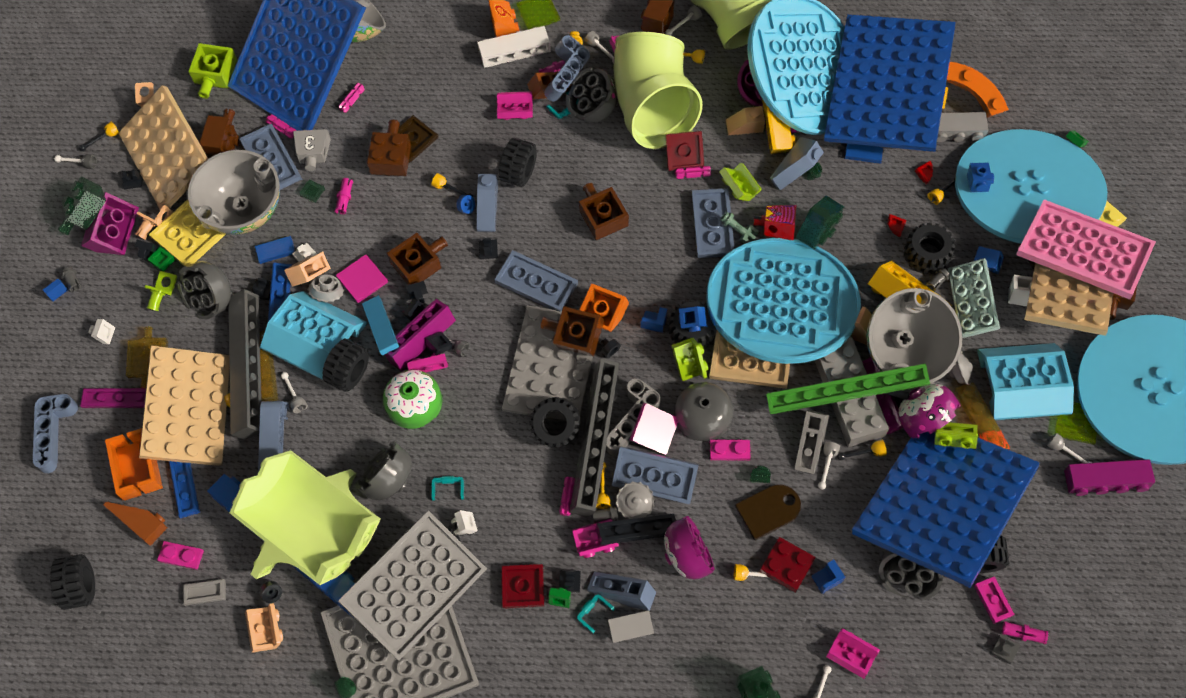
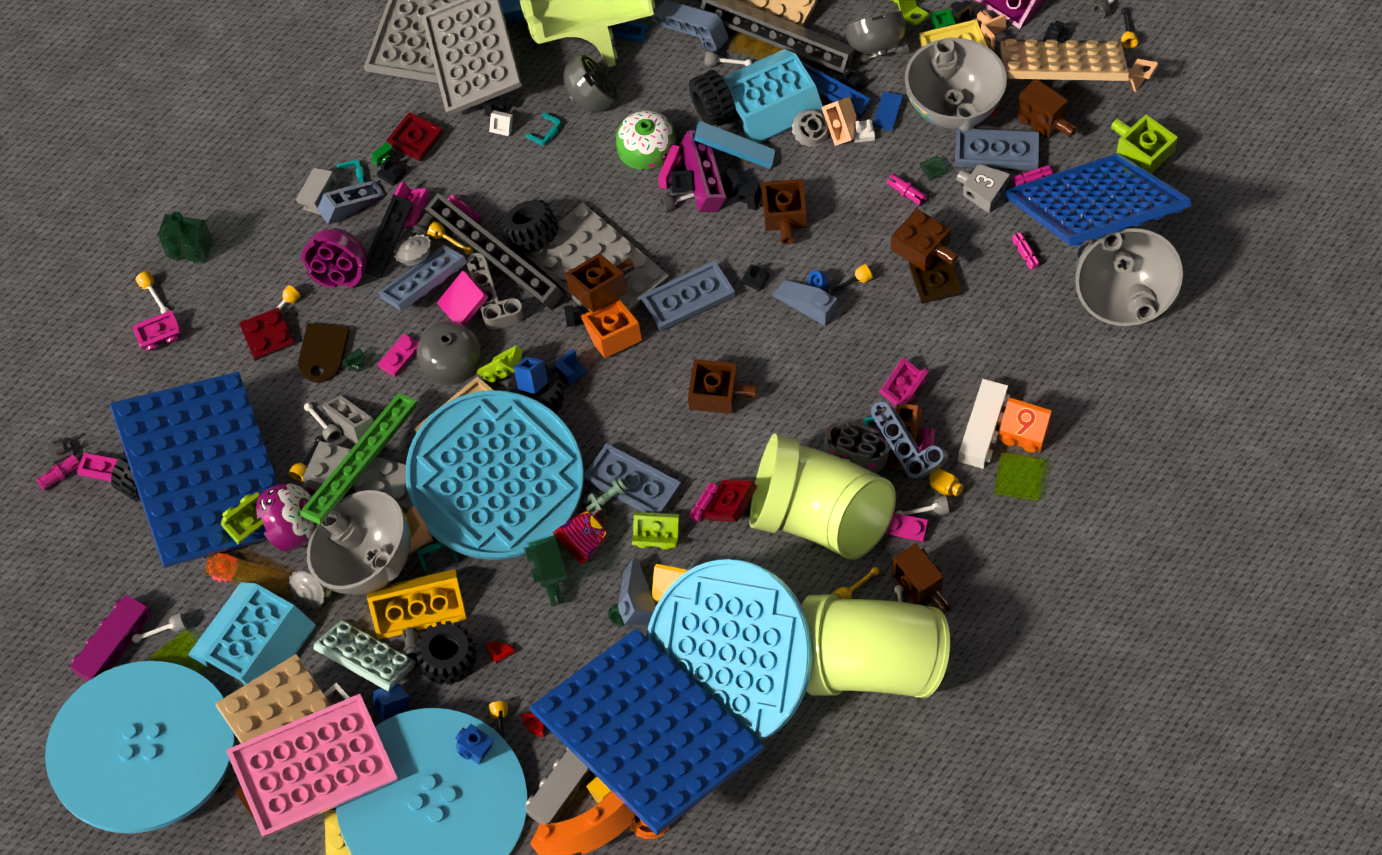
camera: 125 degrees right, 5 degrees down
(362, 278) = (803, 162): dark pink tile -> none
(517, 162) = (824, 338): black tyre -> none
(828, 577) = (228, 357): blue panel -> none

